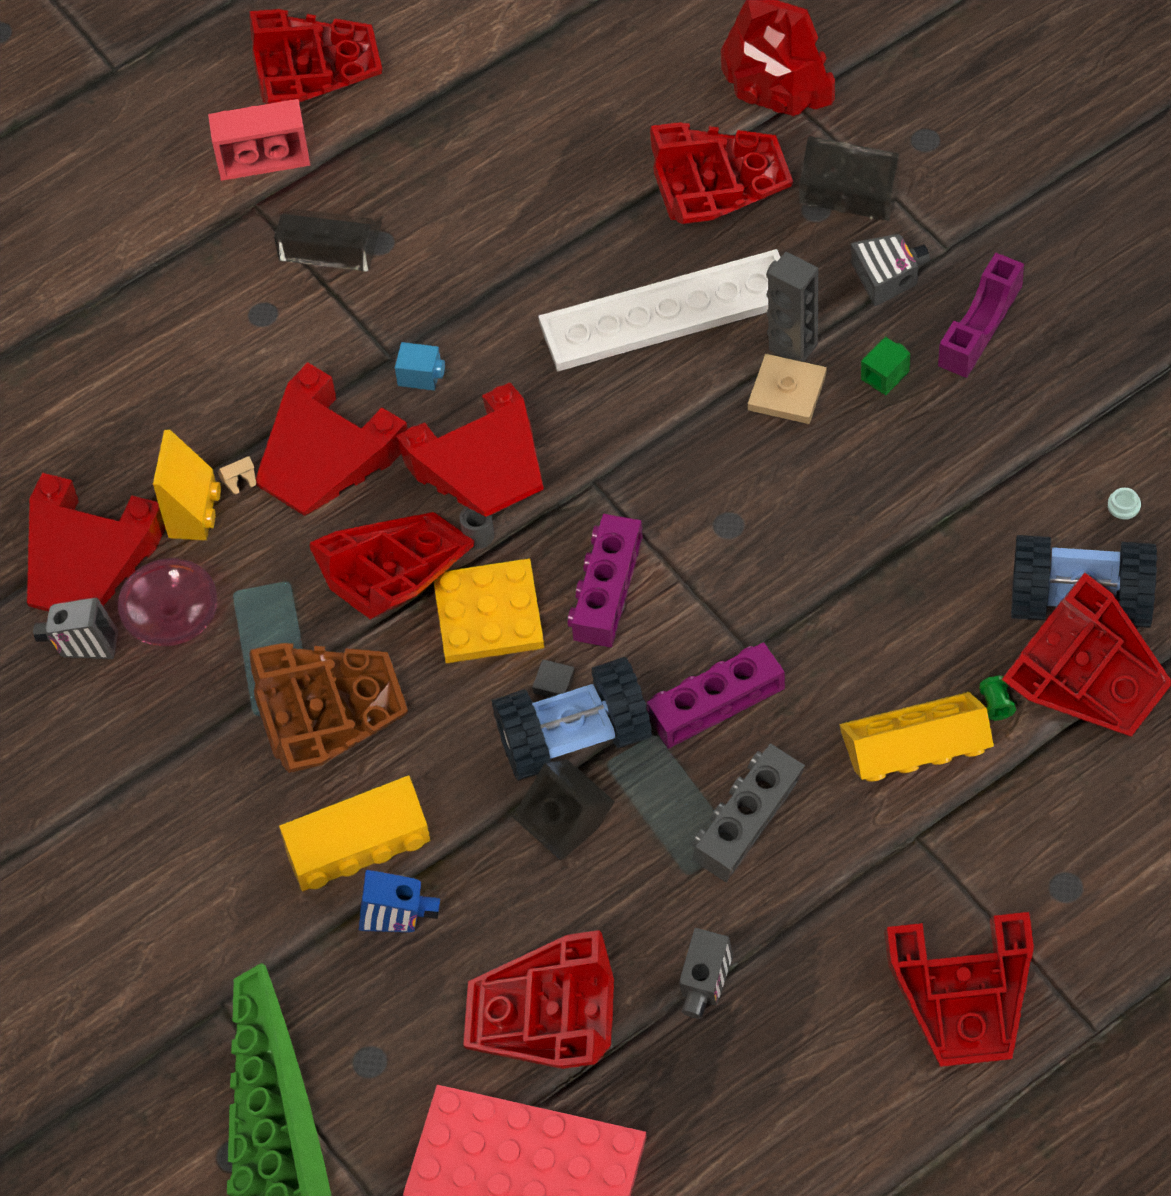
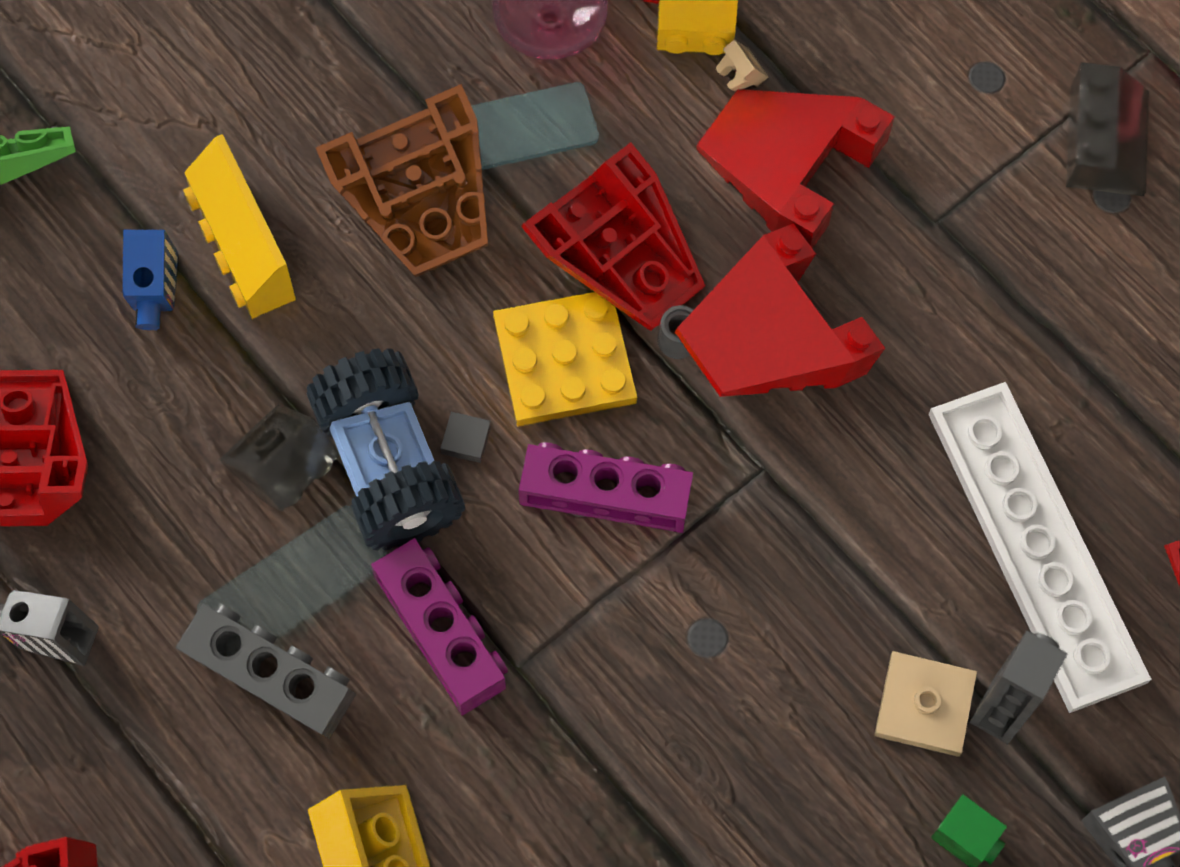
camera: 80 degrees right, 10 degrees up
(419, 366) = (915, 248): dark azure brick -> none

